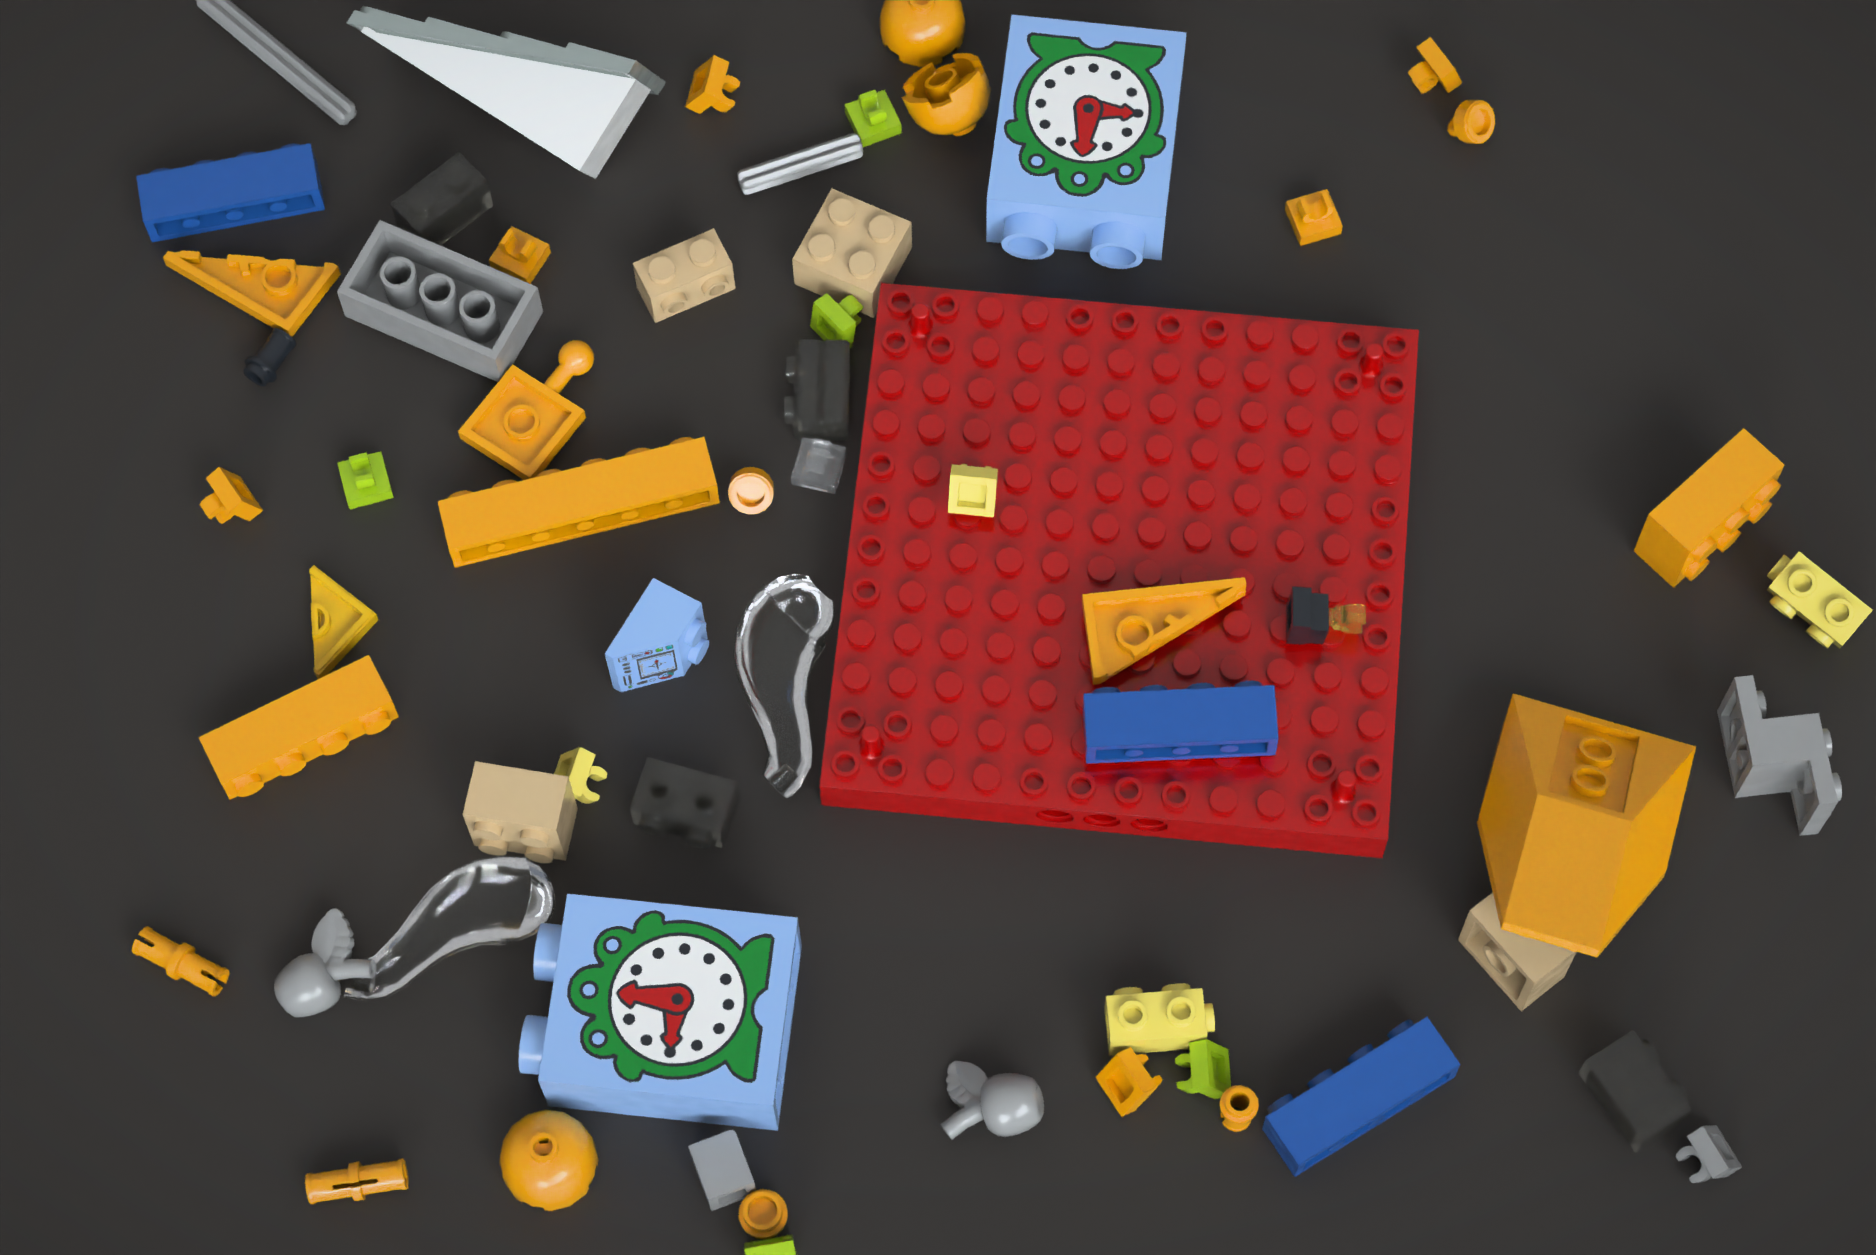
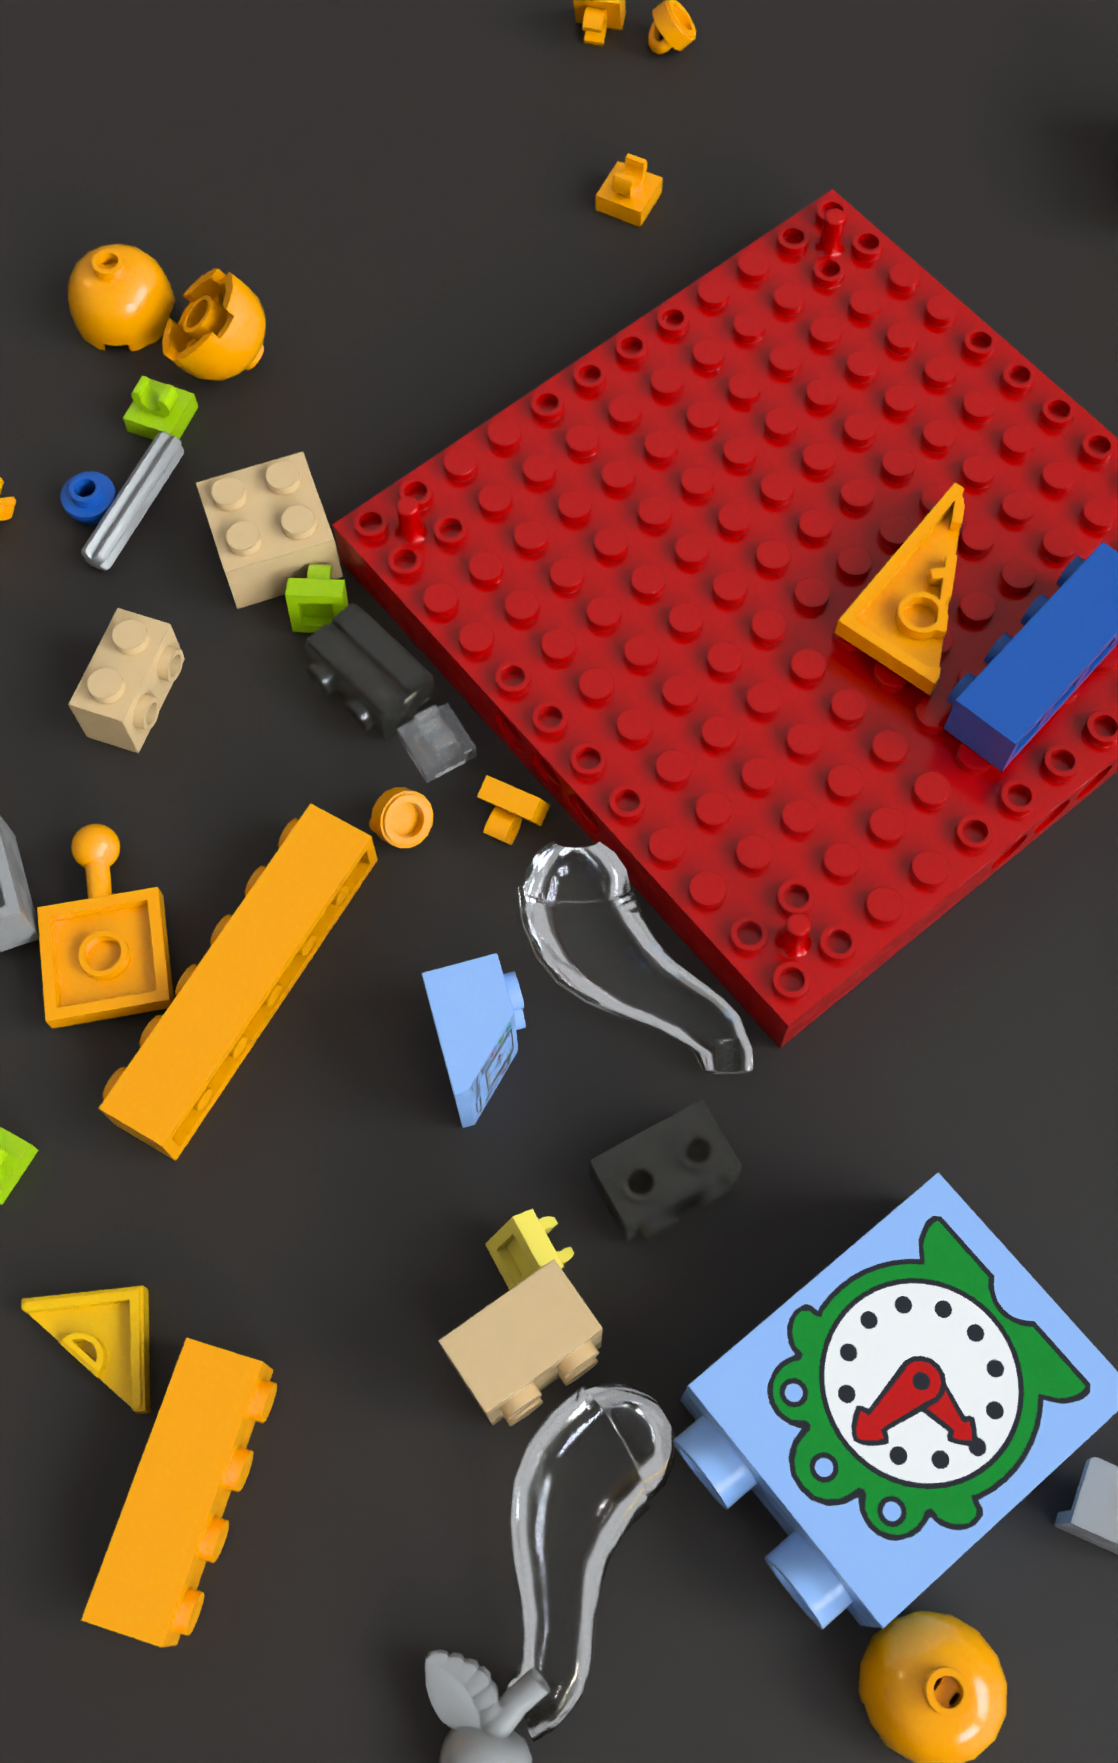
camera: 45 degrees left, 0 degrees up
(776, 148) = (92, 508): none -> blue plate
(814, 539) = (510, 808): none -> light orange tile
(972, 490) = (634, 618): light yellow tile -> none
(1085, 140) = (382, 266): brick -> none
(1310, 617) = (1044, 468): black piece -> none

